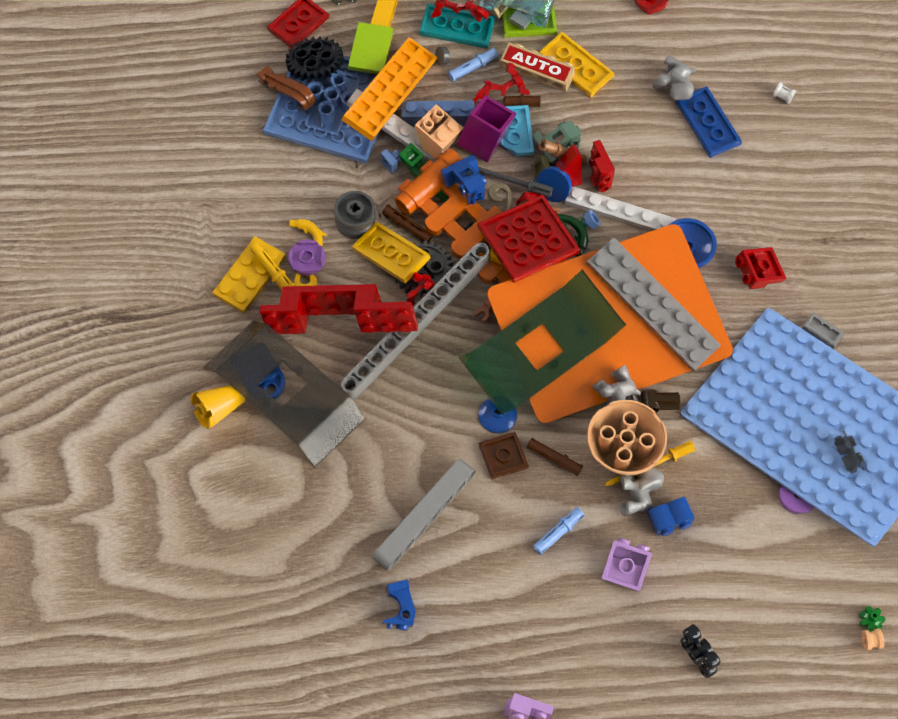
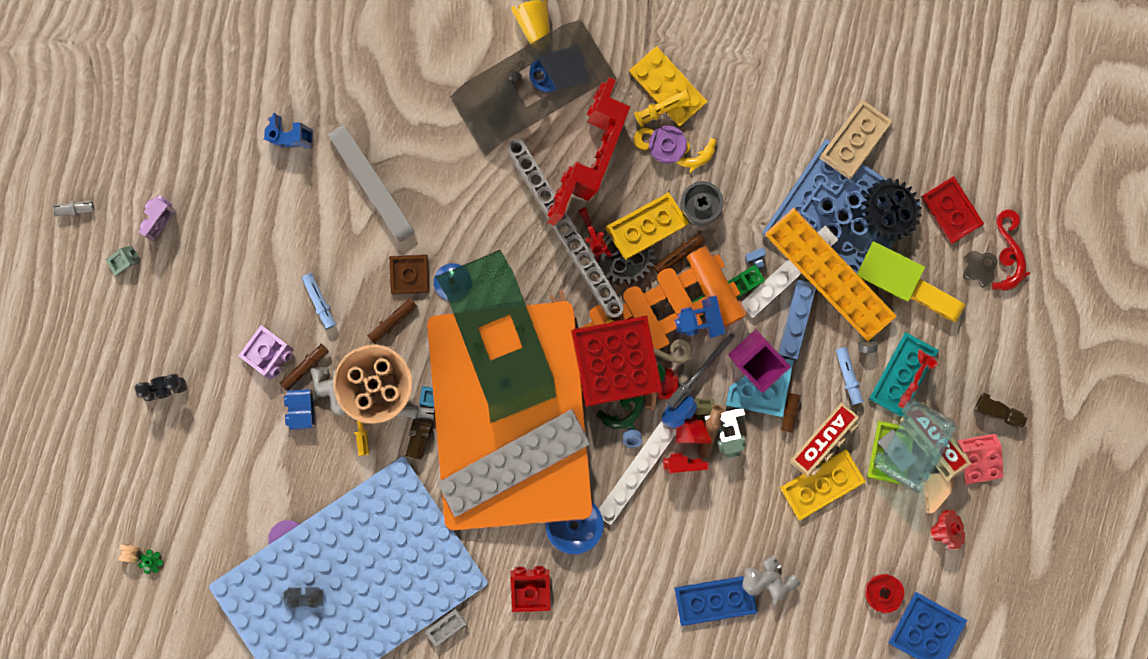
camera: 115 degrees right, 20 degrees up
(256, 106) = (856, 139): none -> tan tile
(287, 87) = (866, 172): dark orange piece -> none
(437, 131) = (768, 309): light nougat slope -> none
(516, 80) = (813, 412): red piece -> none
(619, 390) = (433, 397): light grey animal -> none
(628, 525) = (308, 363): none -> reddish brown pin

